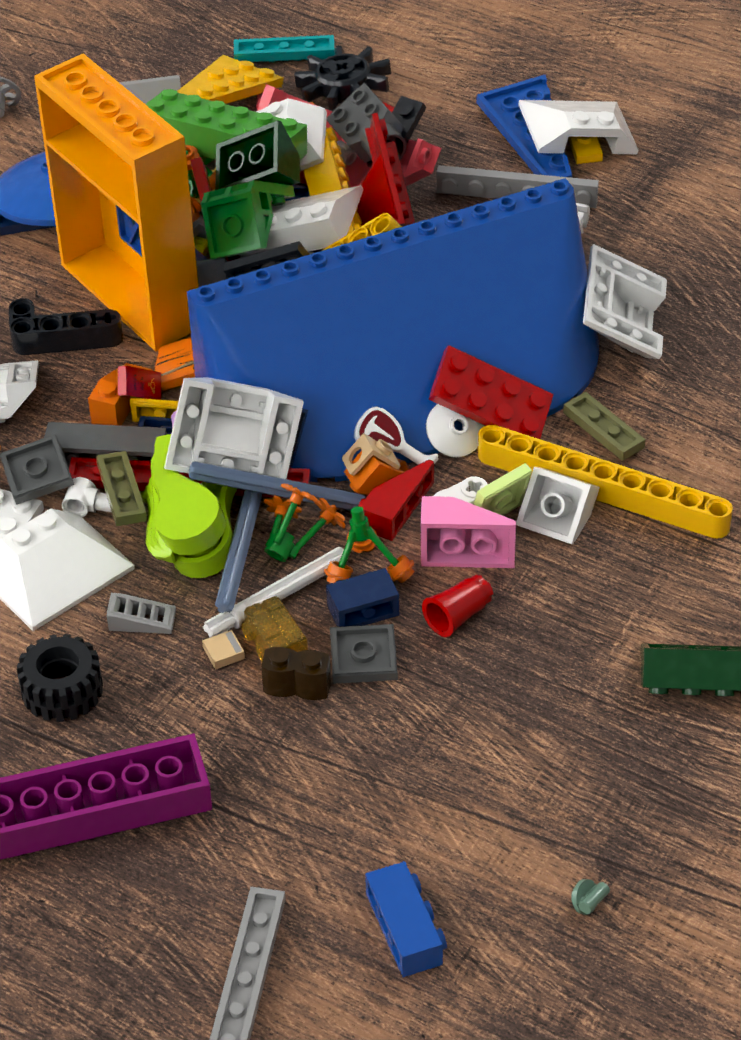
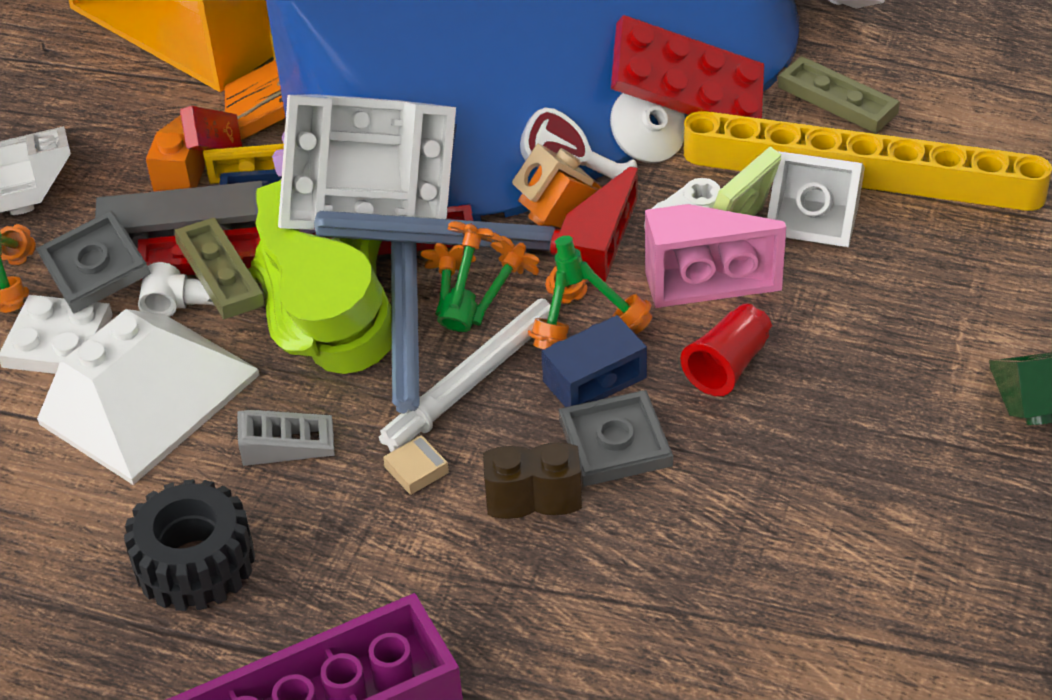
camera: 10 degrees left, 0 degrees up
(61, 331) = (88, 84): black beam -> none
(272, 626) = (479, 421): clear yellow brick -> none

